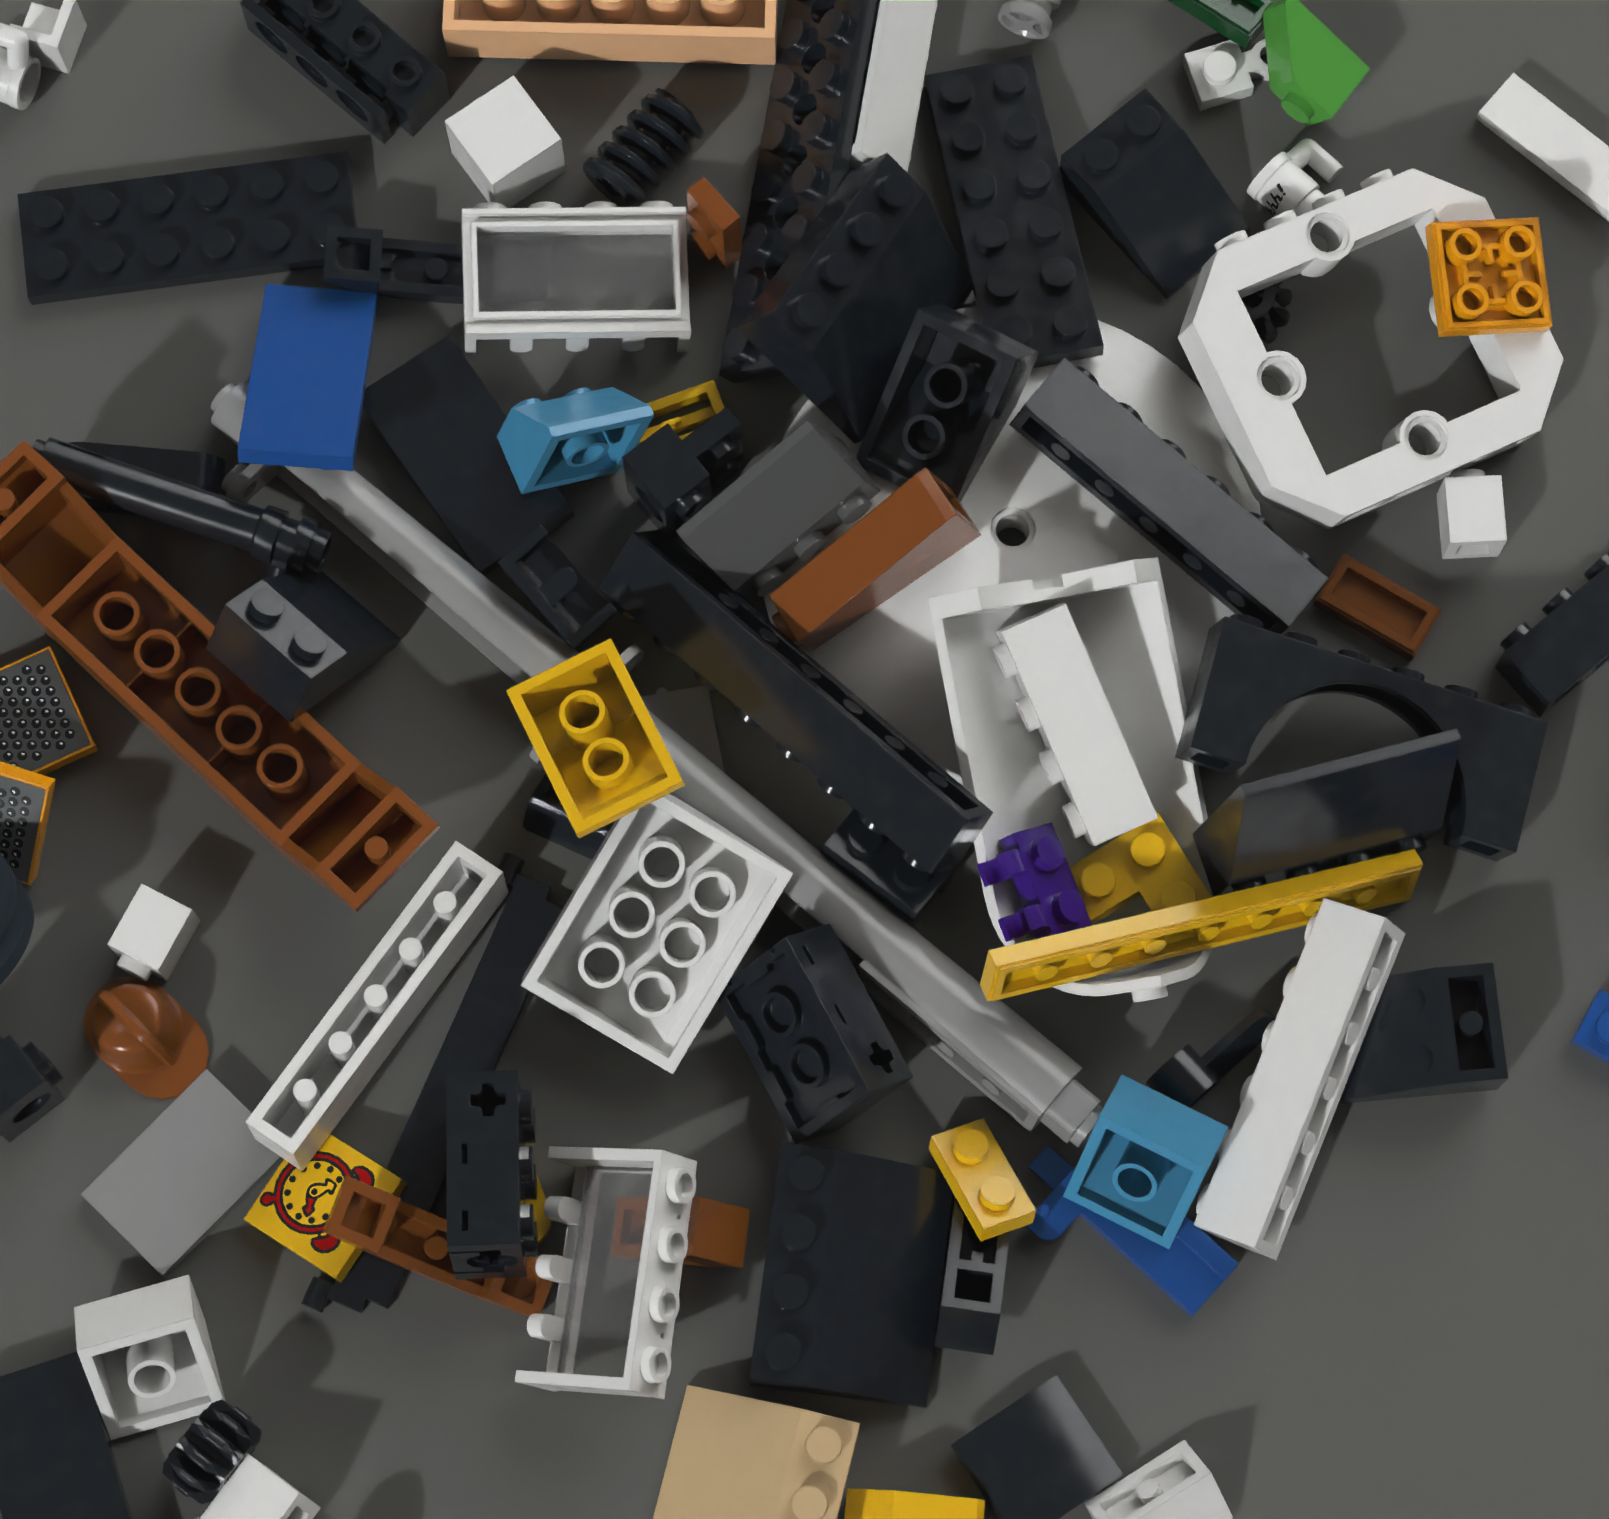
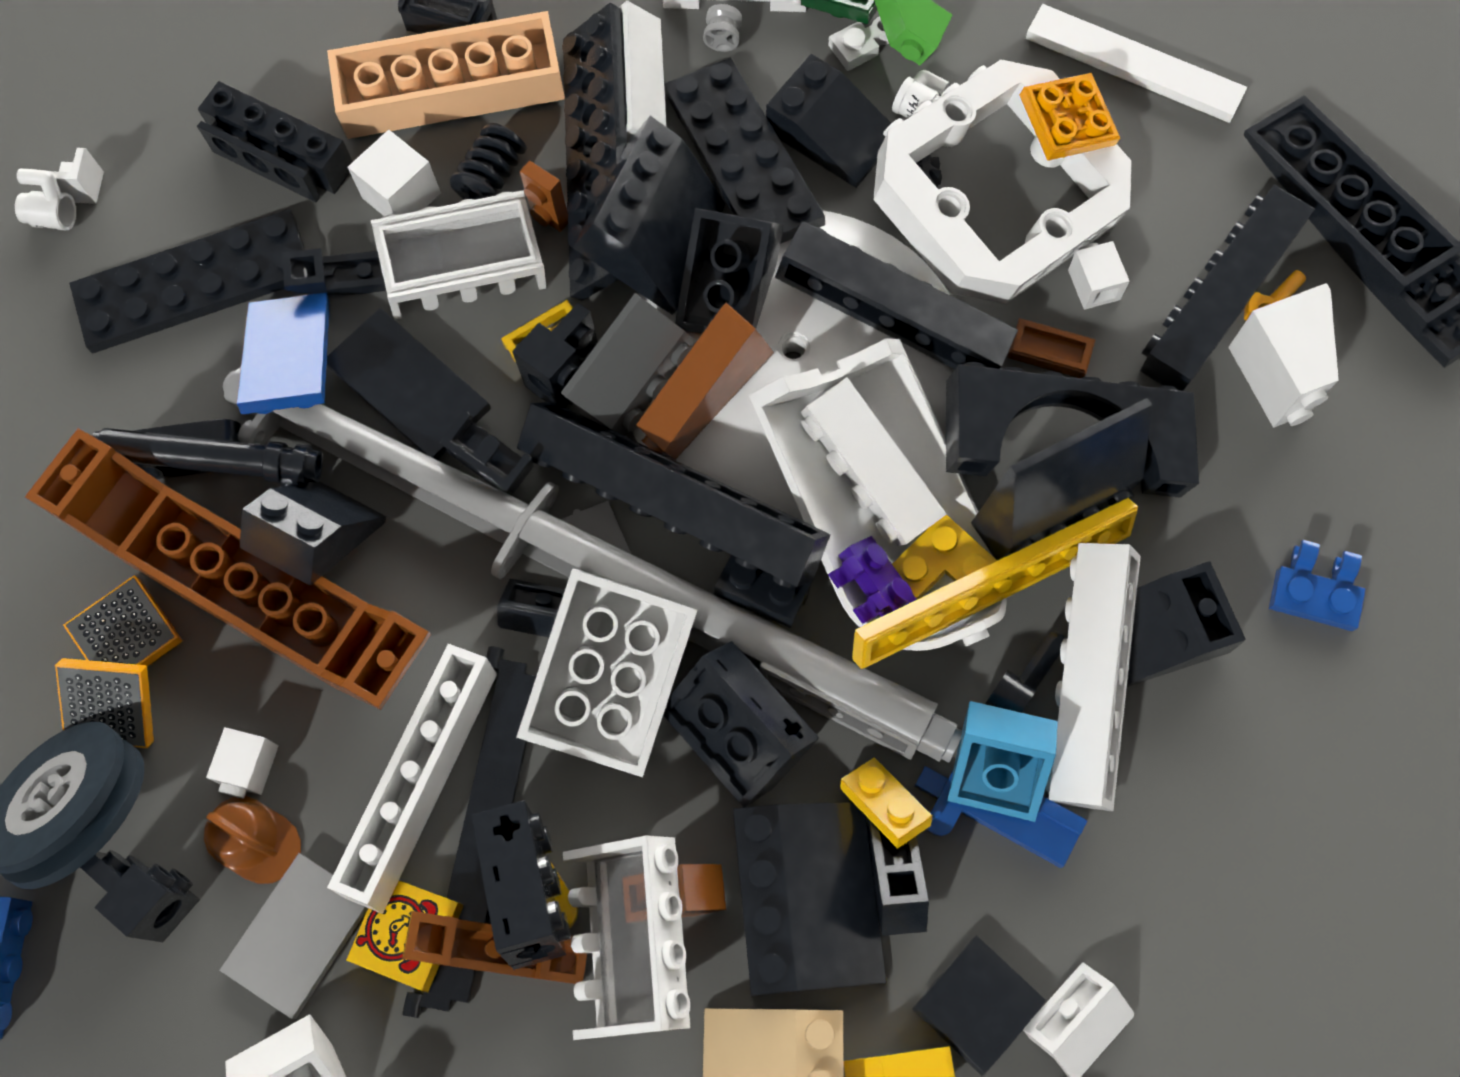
camera: 10 degrees left, 5 degrees down
(572, 436) = (476, 353): dark azure slope -> none
(595, 738) = (532, 544): yellow slope -> none

